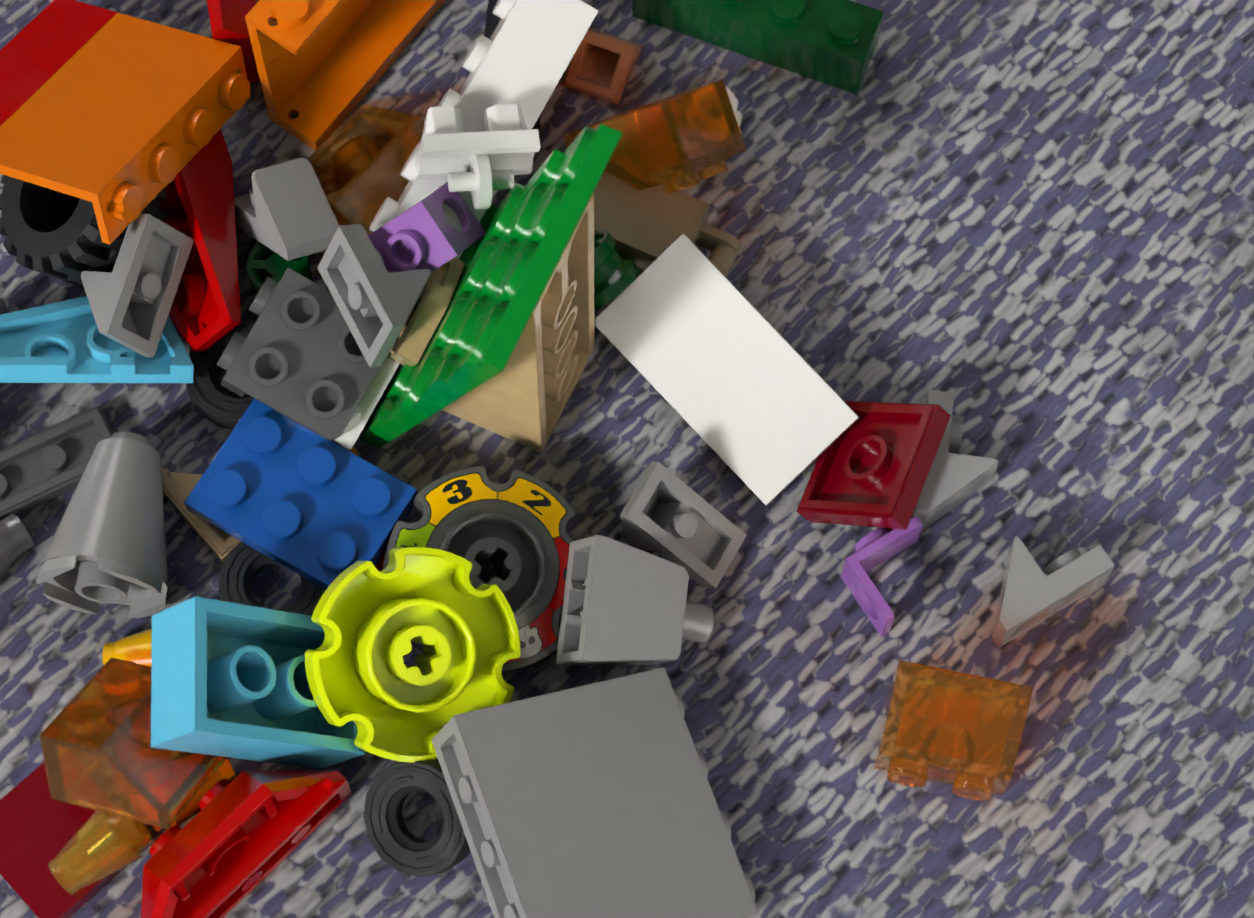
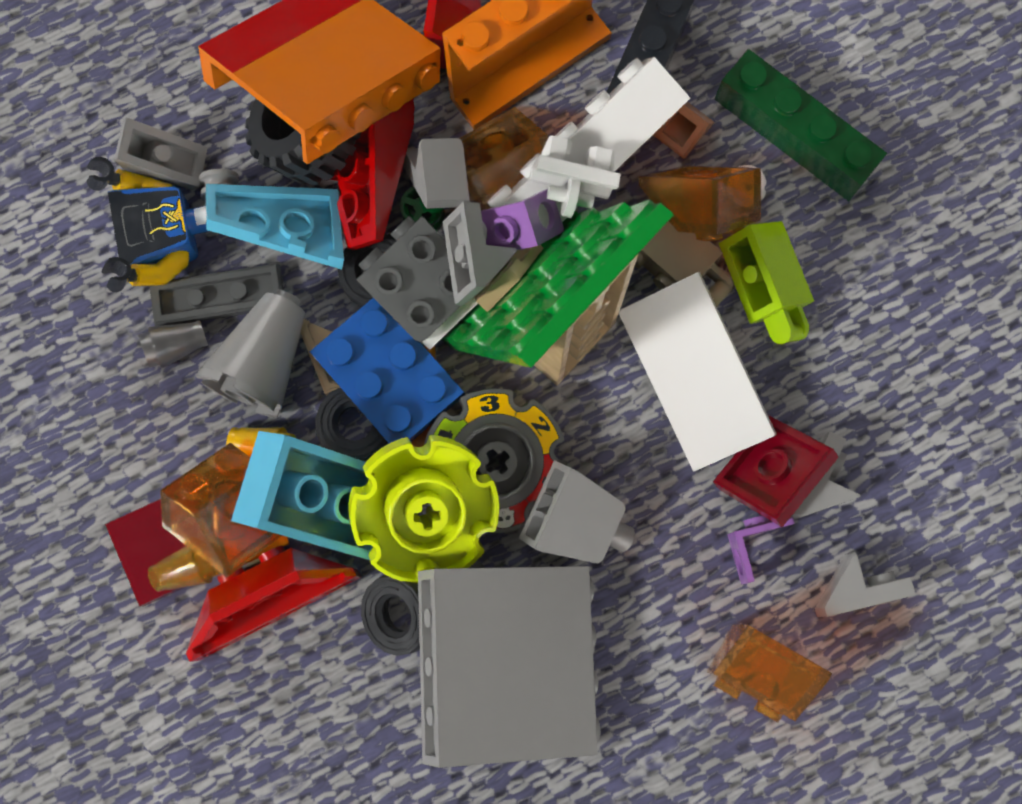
camera: 20 degrees right, 10 degrees up
(139, 292) = (318, 203): light grey slope -> none
(611, 271) = (642, 281): dark green wheel -> none
(680, 526) = (632, 472): light grey slope -> none
(782, 221) = (769, 279): none -> lime brick

